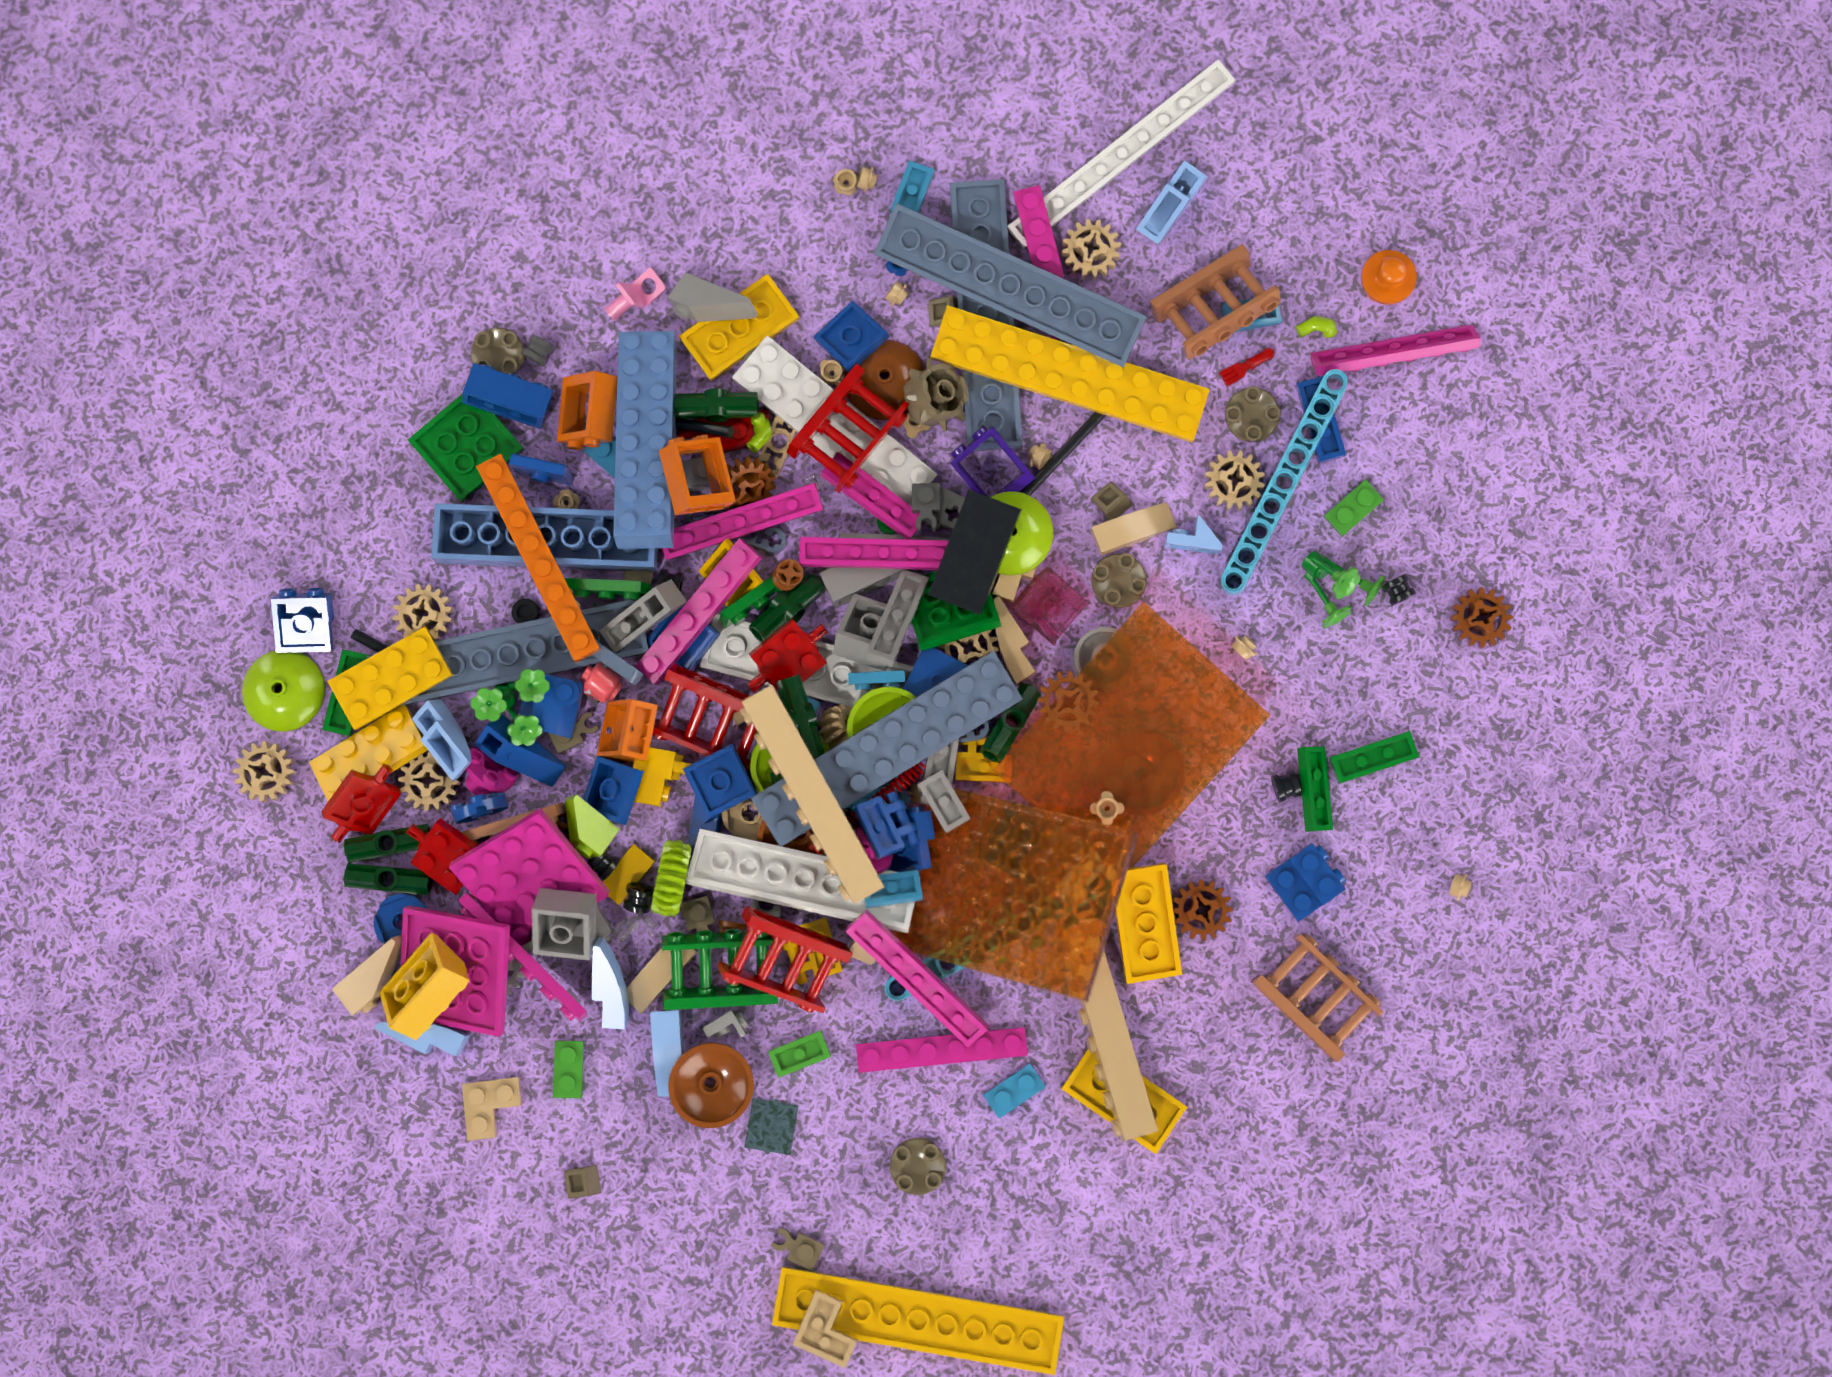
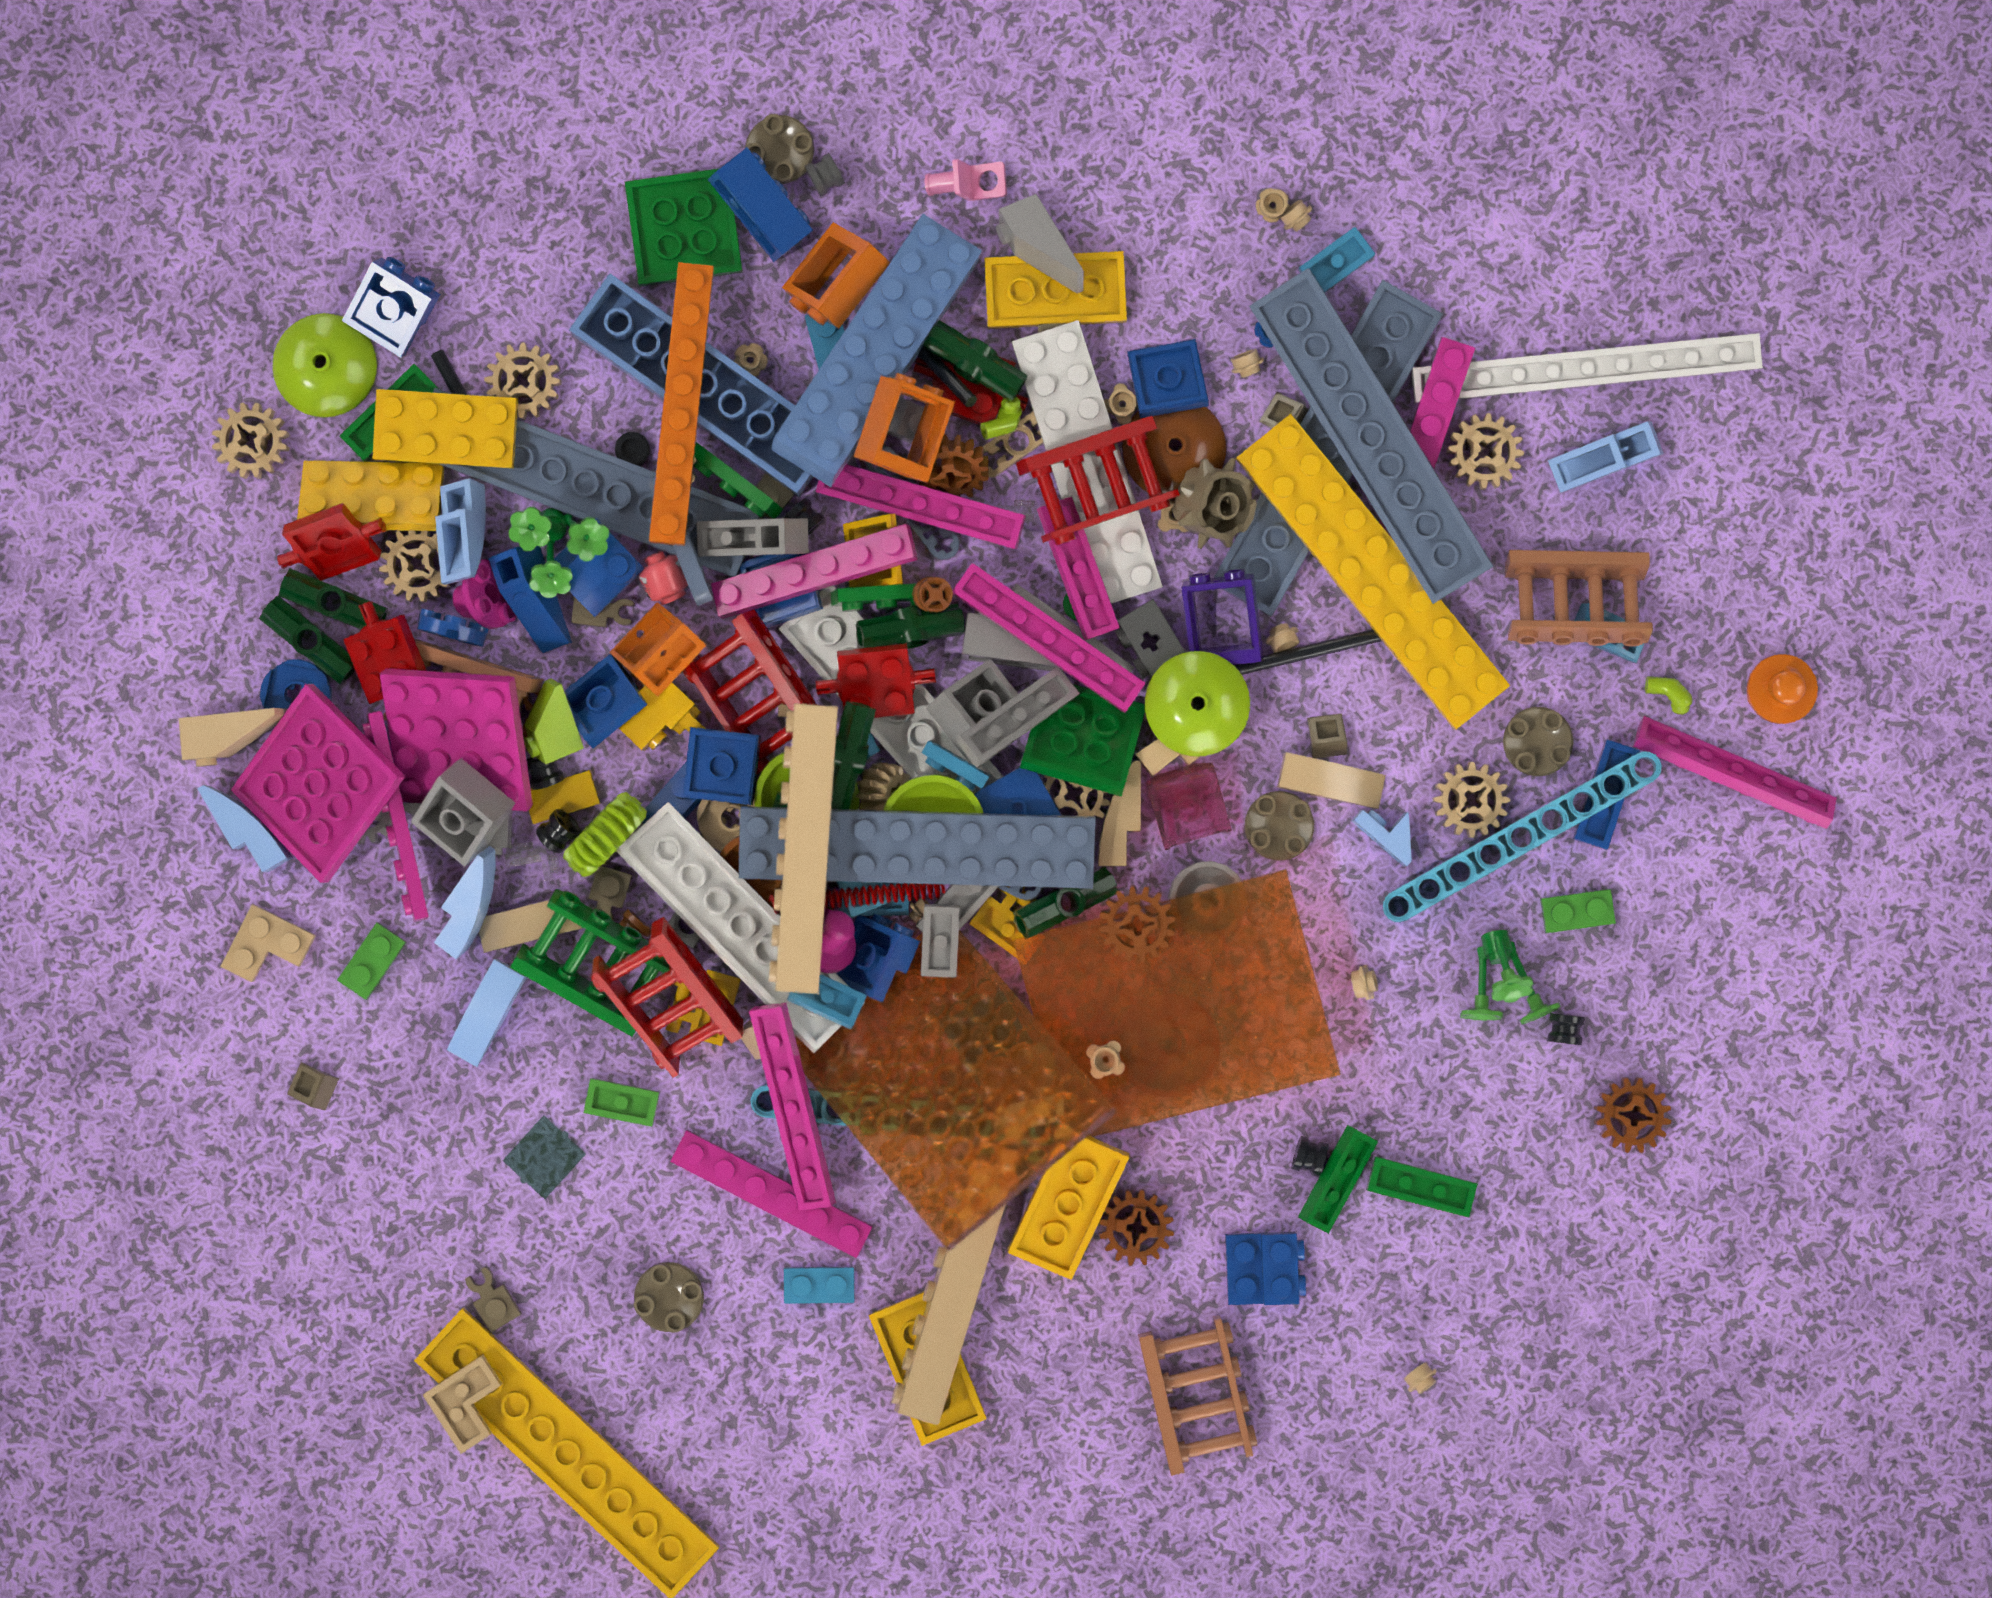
camera: 20 degrees right, 5 degrees up
(423, 987) = (274, 781): yellow slope -> none
(541, 470) = (744, 309): blue plate -> none
(714, 1104) = (502, 1097): dark orange dish -> none
(721, 1025) = (559, 1020): light grey bracket -> none
(880, 828) = (854, 928): blue plate -> none
(926, 501) = (1128, 611): dark grey plate -> none
(975, 552) = (1144, 701): black tile -> none
(1238, 371) = (1554, 684): red piece -> none

